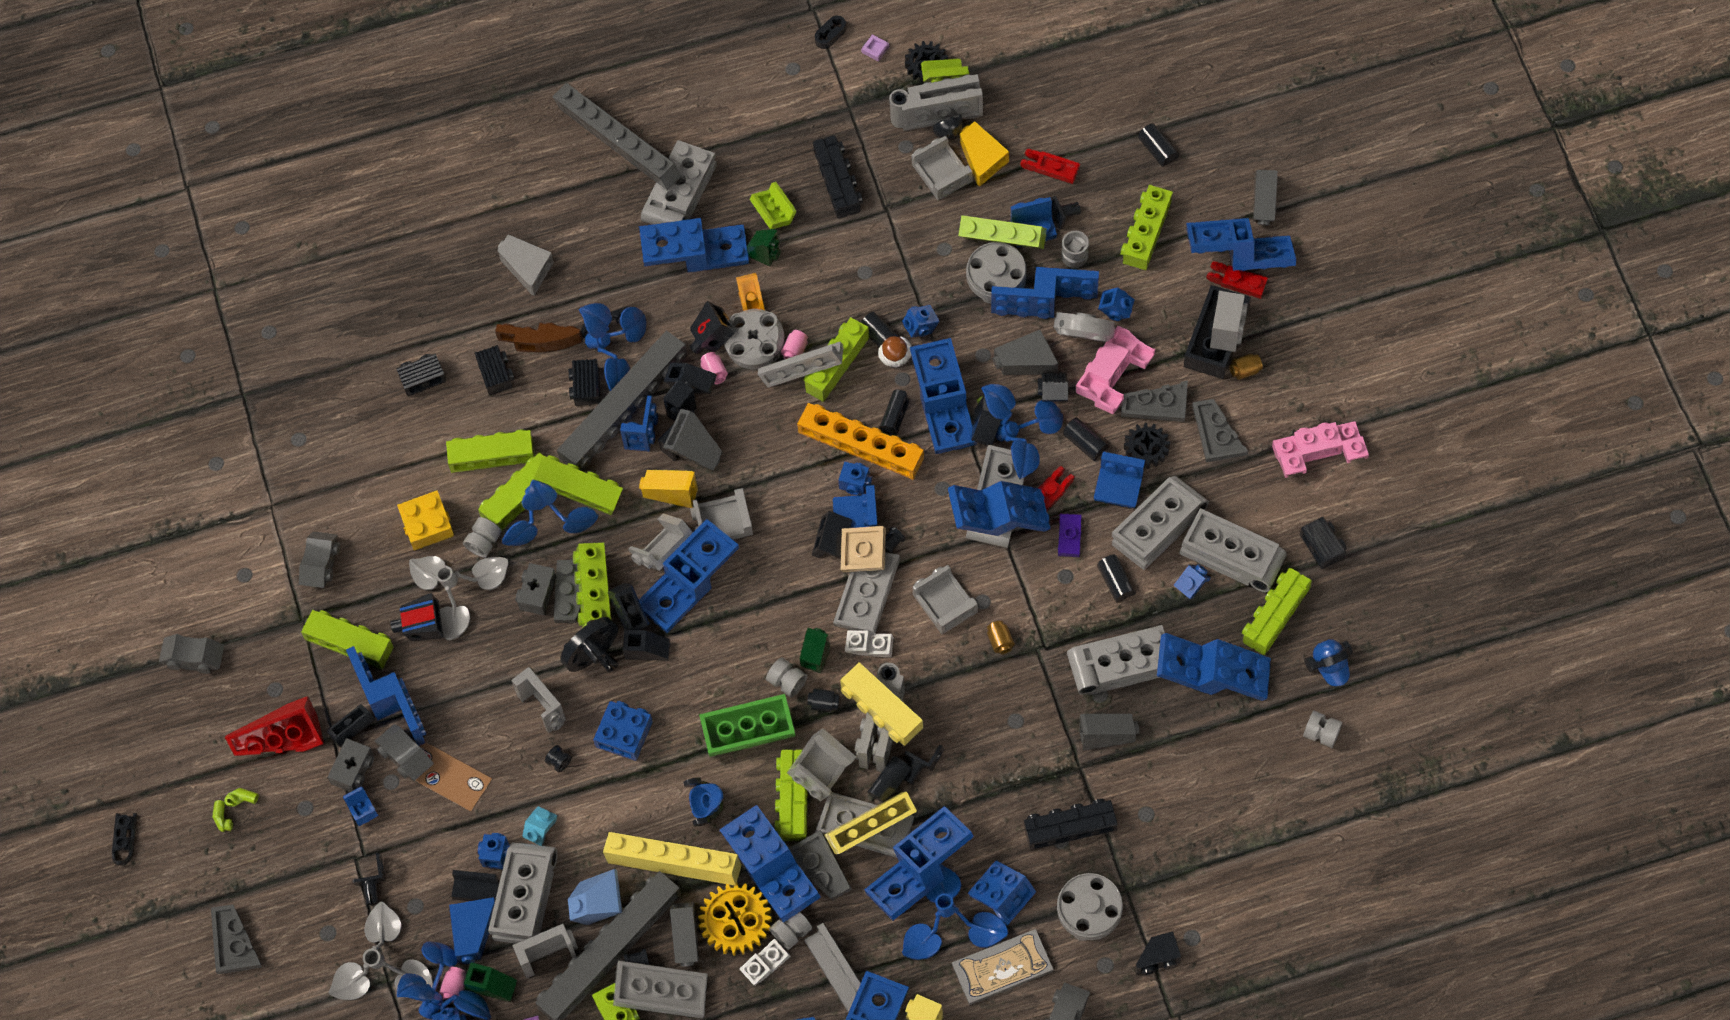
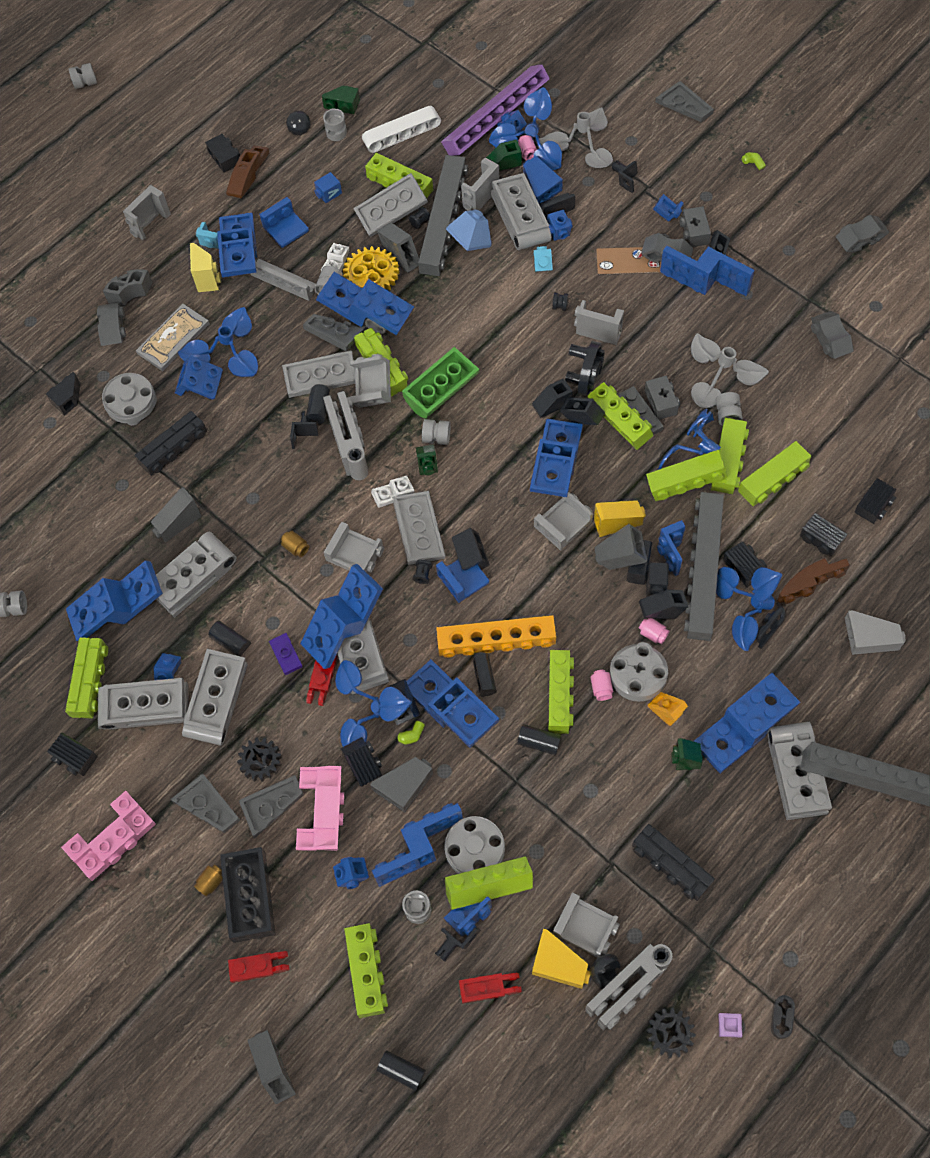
camera: 150 degrees right, 0 degrees up
(121, 842) = (801, 116): black piece -> none
(239, 796) = (753, 178): lime arm -> none
(285, 729) = (761, 225): red wedge -> none
(341, 635) = (766, 297): lime brick -> none
(420, 619) = (725, 332): torso -> none
(425, 520) = (779, 398): yellow brick -> none
(623, 730) = (527, 338): blue brick -> none
(664, 544) = (591, 468): light grey panel -> none
(672, 858) = (436, 276): light yellow brick -> none
(704, 800) = (436, 326): blue cap -> none
(711, 328) = (677, 656): black torso -> none
(774, 206) = (706, 800): lime bracket -> none
(802, 365) = (580, 656): light grey fence -> none
(823, 700) = (399, 433): black brick -> none
(854, 478) = (480, 601): blue brick -> none
(863, 549) = (436, 545): tan plate -> none
(870, 823) = (310, 362): light yellow brick -> none
(881, 704) = (343, 423): light yellow brick -> none
(895, 351) = (515, 725): dark orange hair -> none
(918, 863) = (261, 356): blue bracket -> none
(920, 321) = (511, 761): blue brick -> none
(943, 69) = (643, 1021): lime bracket -> none
(1084, 326) = (364, 827): light grey piece -> none
(1085, 438) = (314, 740): black brick -> none
(1119, 480) = (267, 716): blue bracket -> none
(1228, 321) = (230, 886): light grey brick -> none
(1243, 249) = (264, 990): blue bracket -> none
(1331, 661) = (24, 660): blue cap -> none

